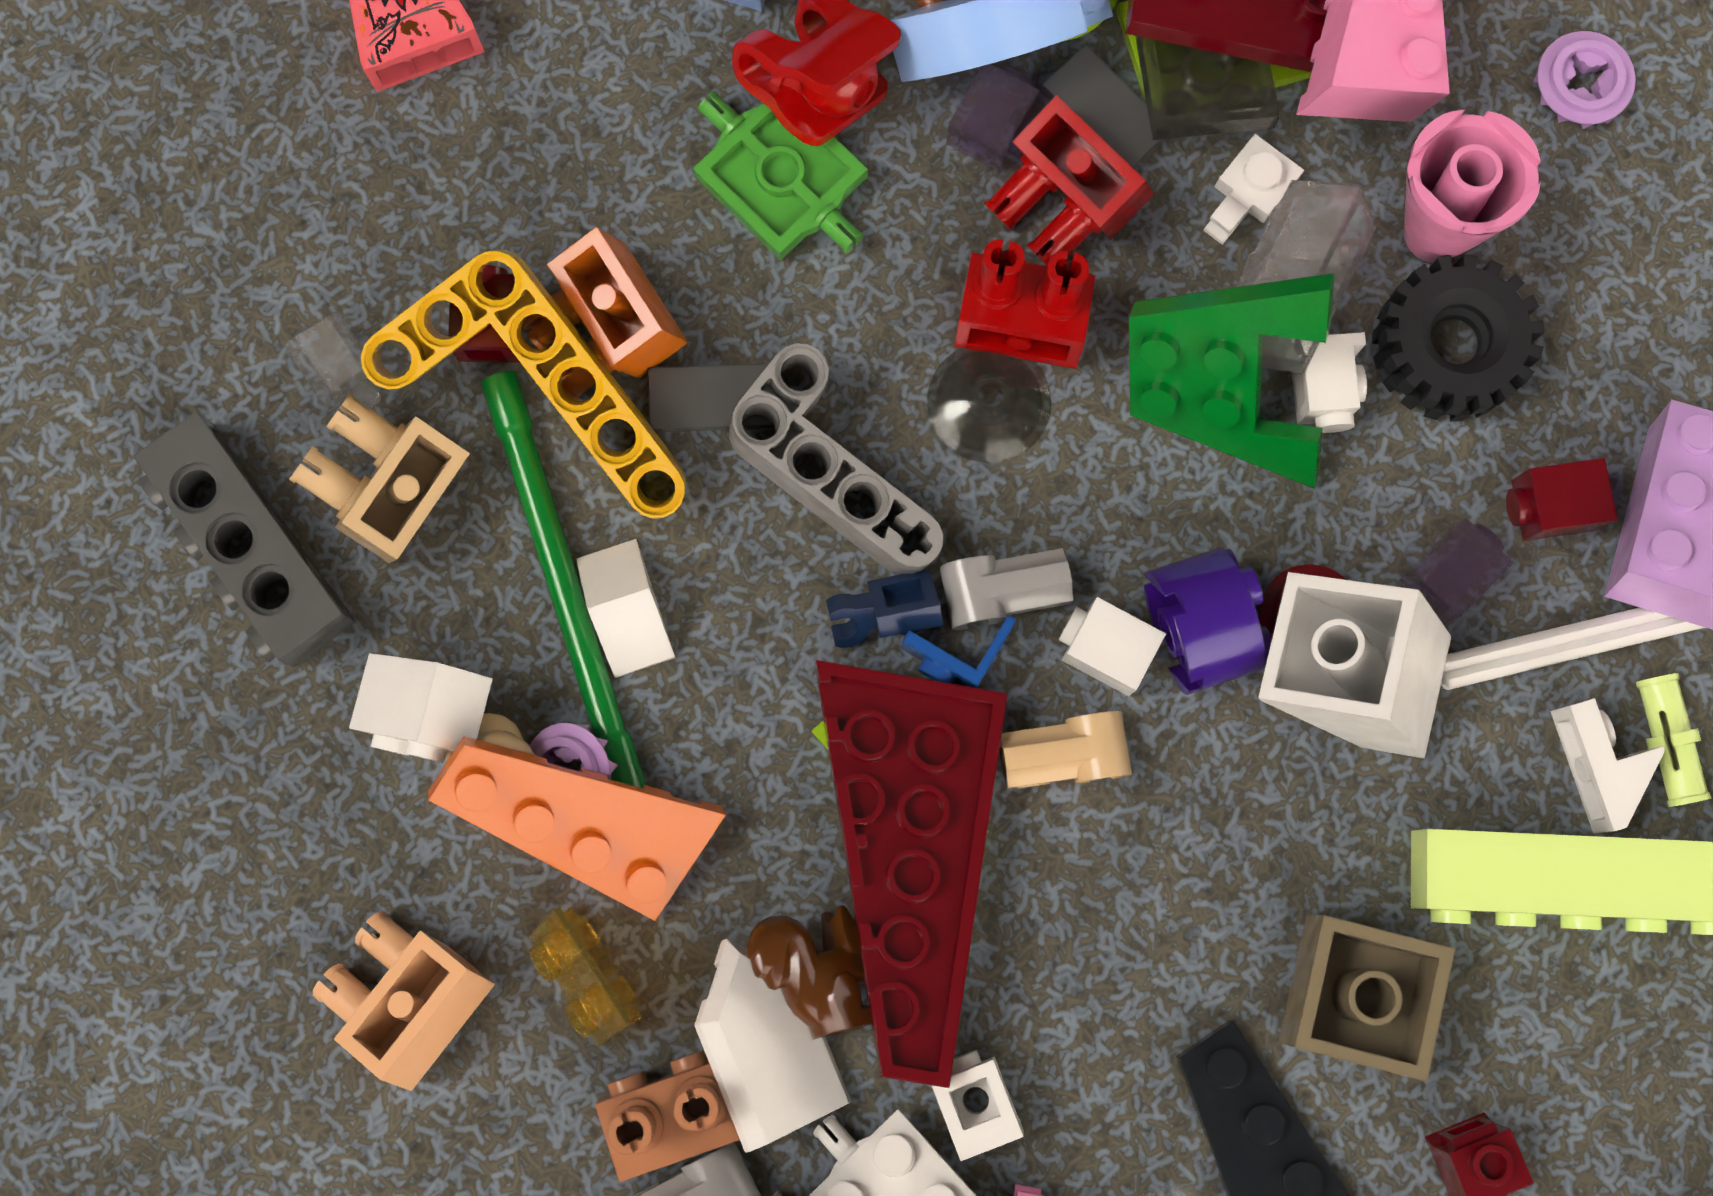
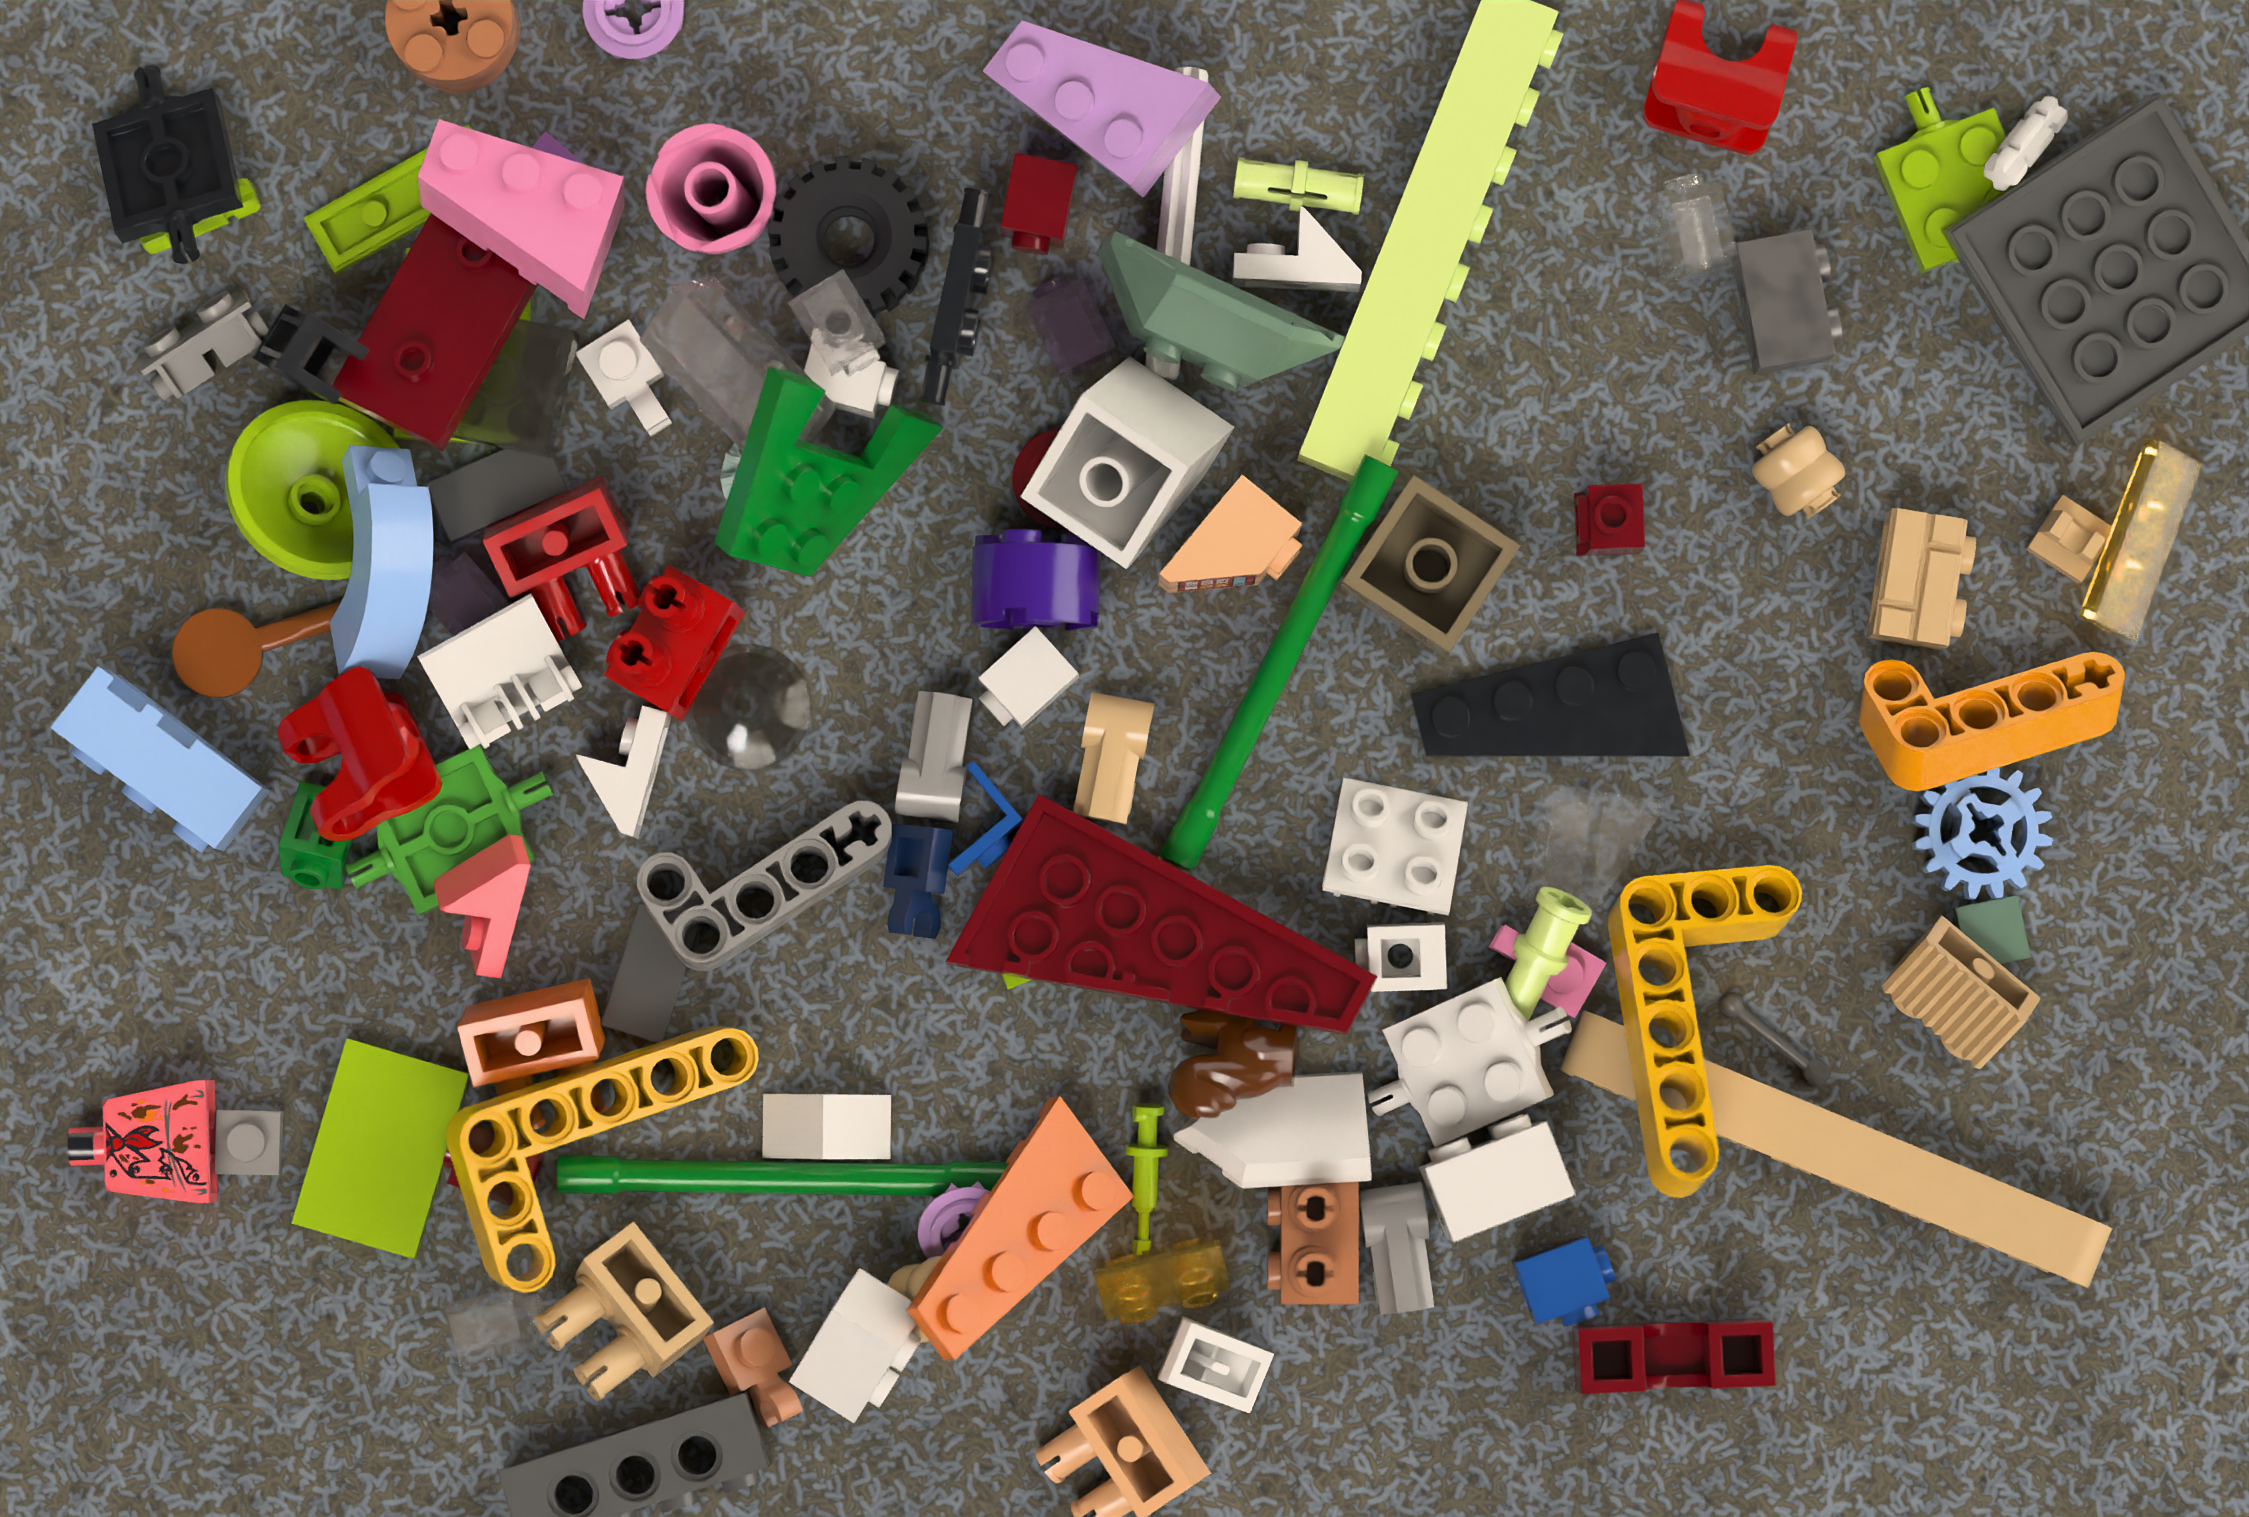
camera: 70 degrees left, 5 degrees up
(381, 611) = (750, 1359): none -> nougat plate
(437, 97) = (249, 1142): none -> light grey plate
(455, 206) = (380, 1148): none -> lime tile
(516, 1055) = (1215, 1365): none -> white slope
(685, 923) = (1145, 1169): none -> lime piece
(710, 57) = (304, 853): none -> green bracket
(732, 216) = (489, 894): none -> coral slope
(874, 316) = (628, 788): none -> white slope
(941, 158) = (500, 672): none -> white hinge
(1079, 1058) = (1395, 846): none -> white hinge
(1317, 797) = (1235, 544): none -> light nougat slope
(1384, 345) = (838, 325): none -> clear brick
(1394, 904) = (1202, 812): none -> green piece
(1460, 451) = (956, 322): none -> black plate
(1521, 696) = (1206, 319): none -> sand green wedge

